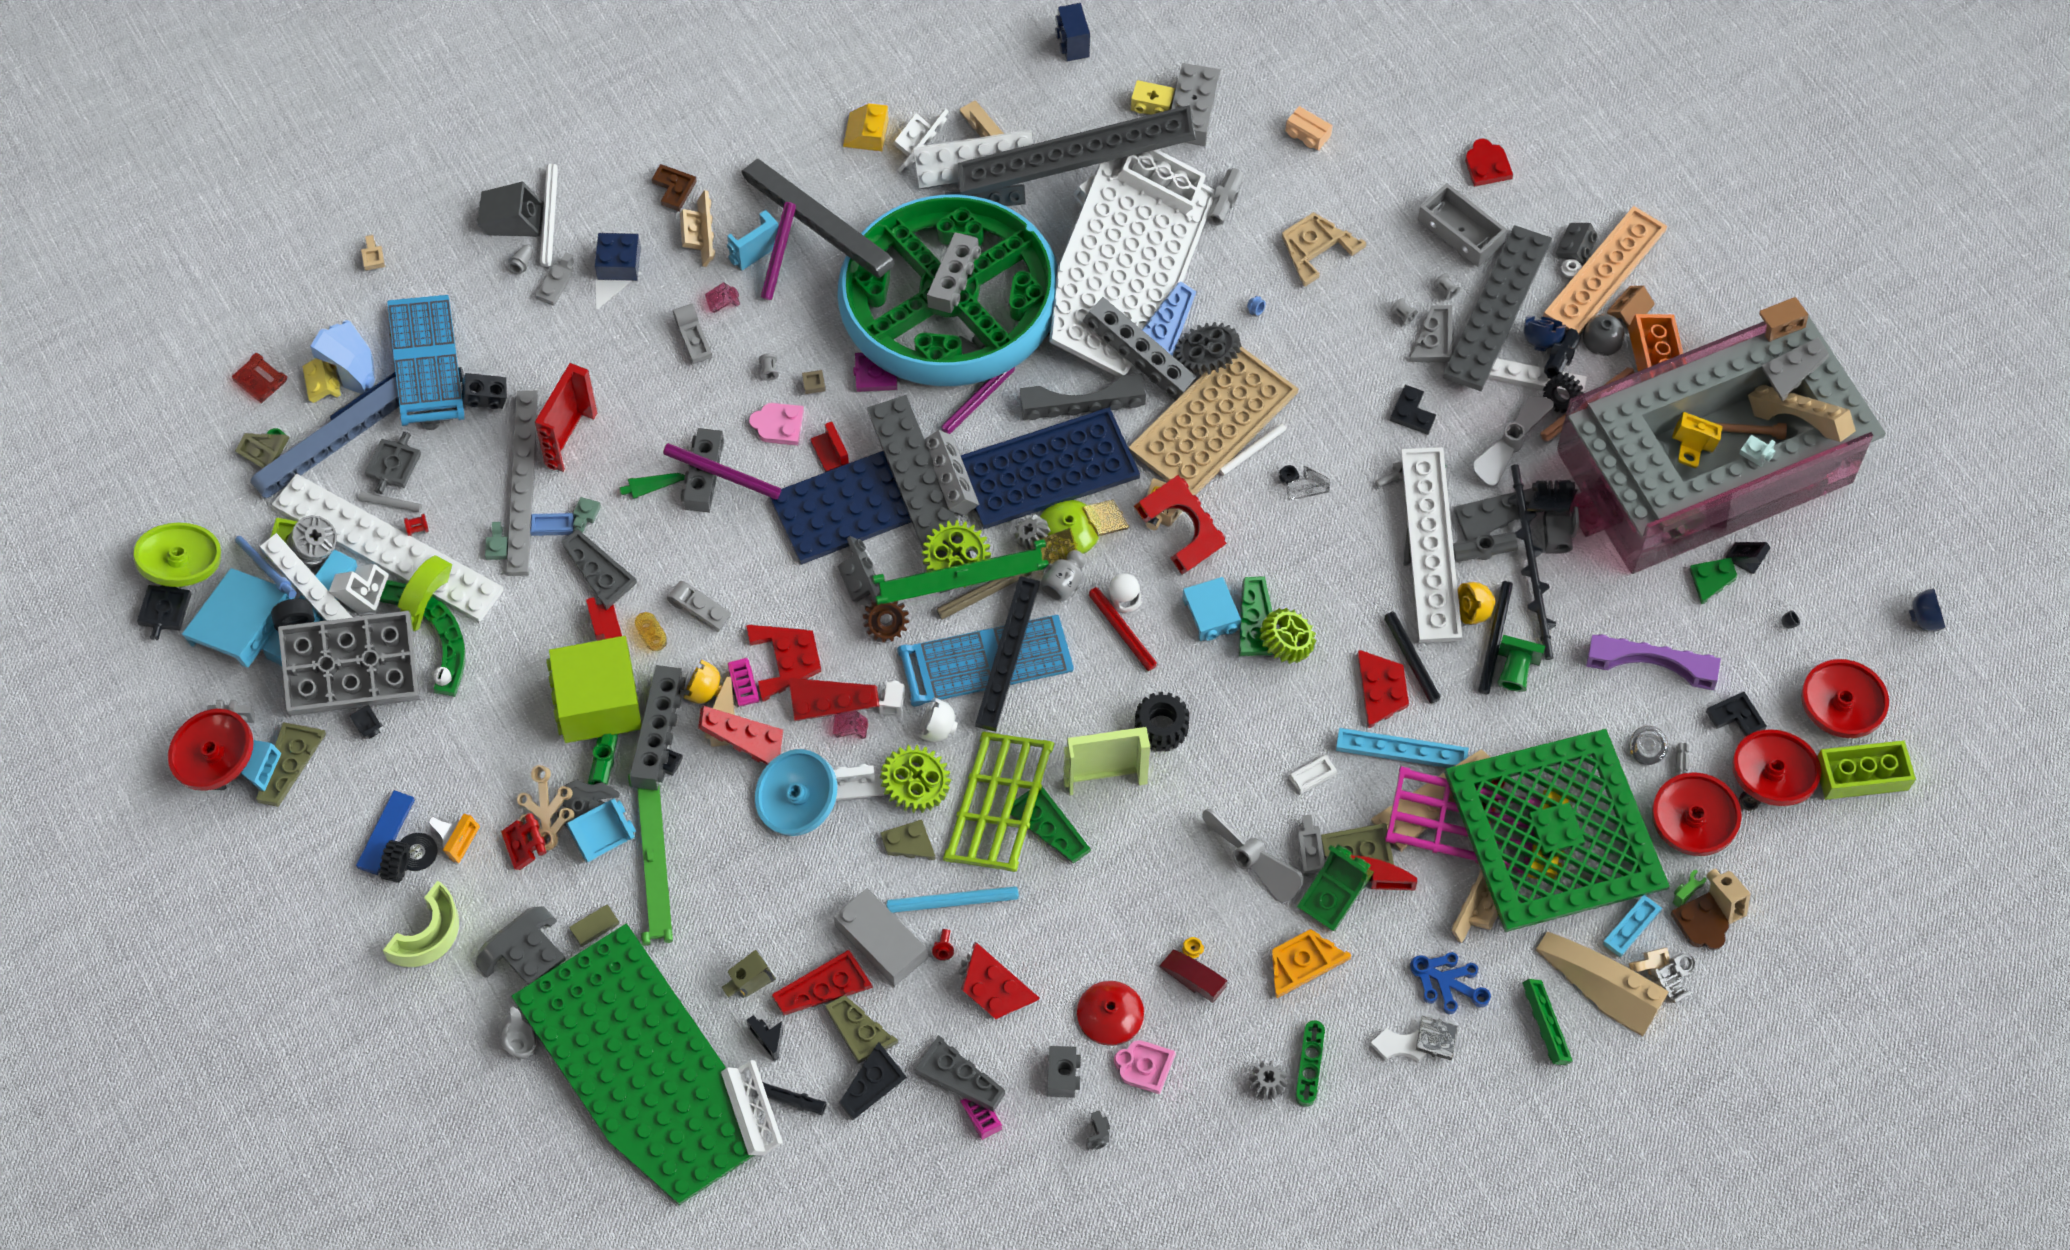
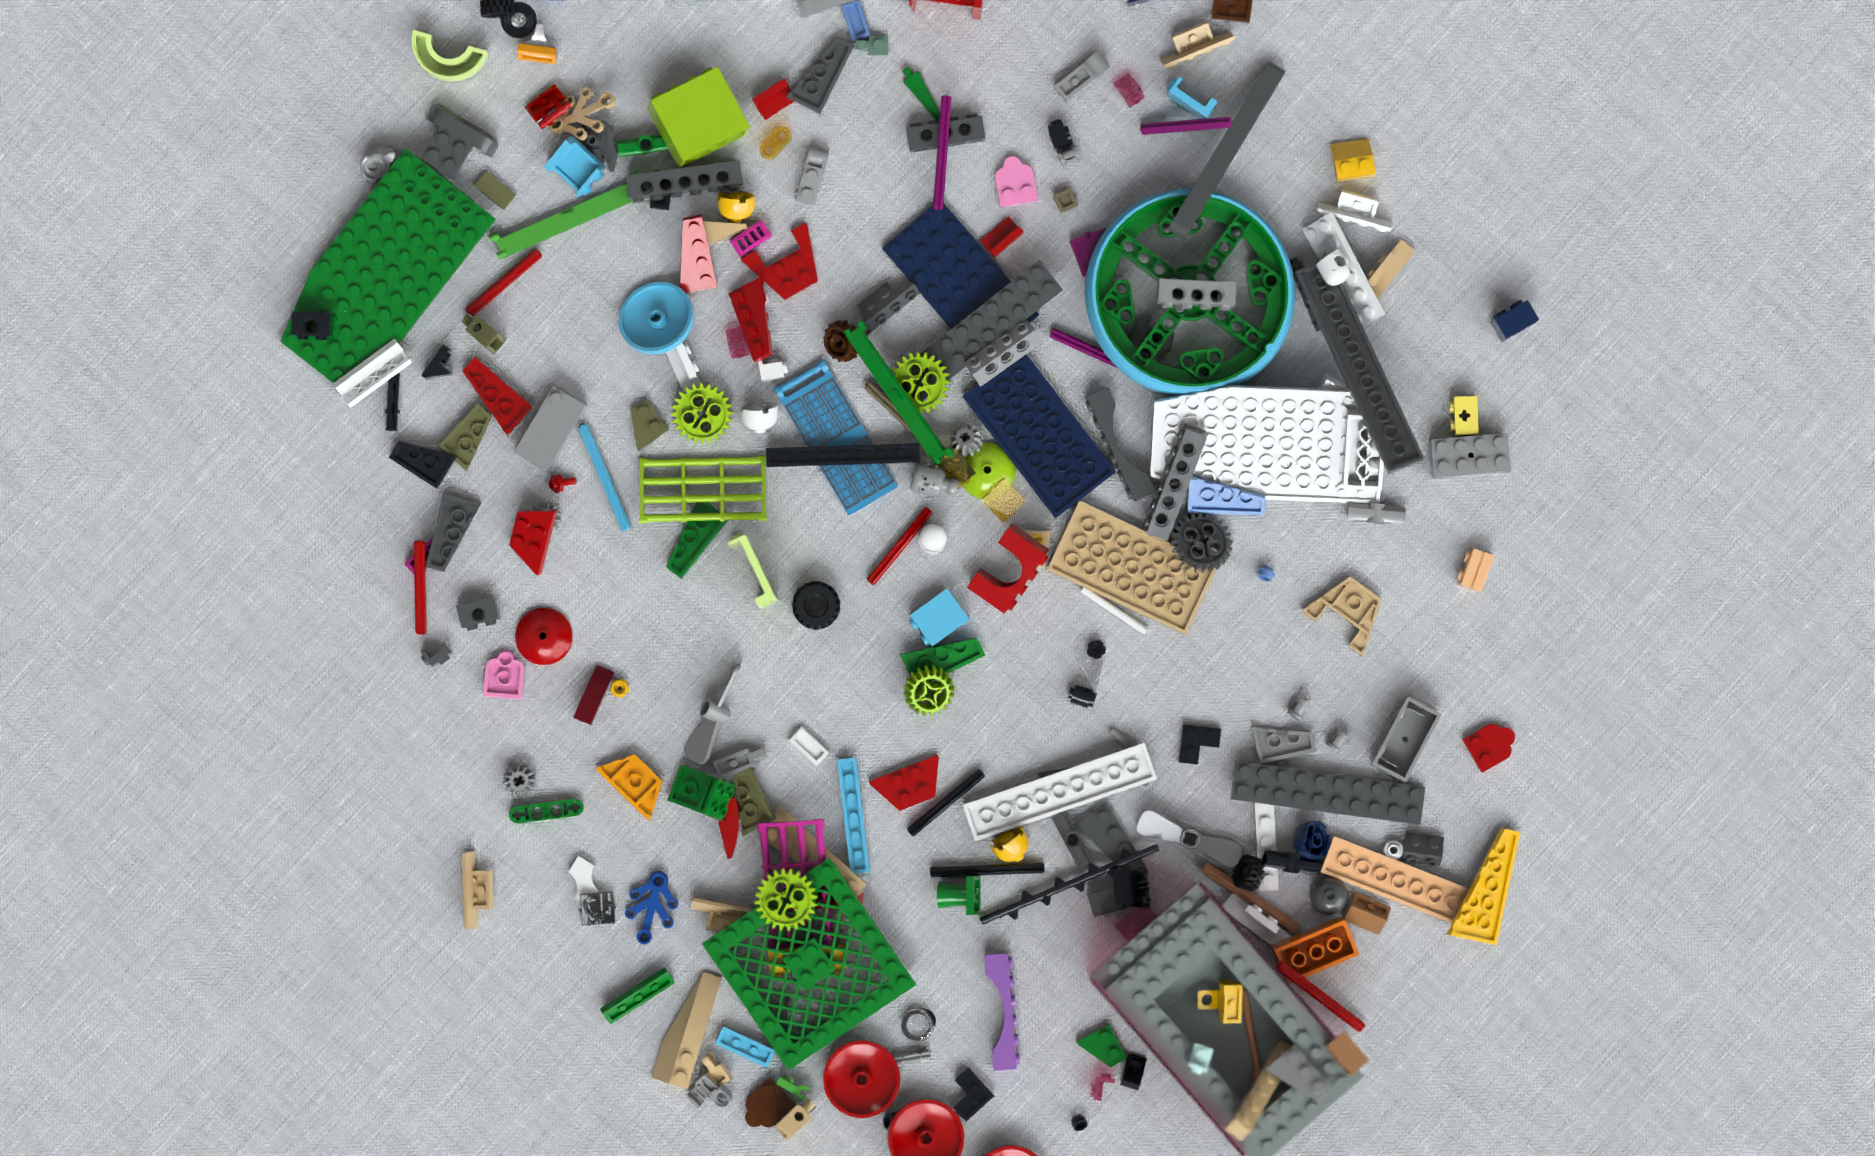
camera: 75 degrees right, 25 degrees up
(673, 1140) = (323, 321): none -> black brick
(699, 943) = (503, 282): none -> red axle
(744, 369) = (1059, 134): none -> black brick
(971, 155) = (1330, 271): none -> white helmet
(1014, 1123) = (420, 587): none -> red axle
(1335, 498) = (1082, 696): none -> black brick
(1381, 1159) = (476, 890): none -> tan bracket
(1469, 832) = (770, 892): none -> lime gear
(1649, 202) = (1484, 904): none -> yellow wing
(1755, 590) = (1097, 1088): none -> clear pink bracket

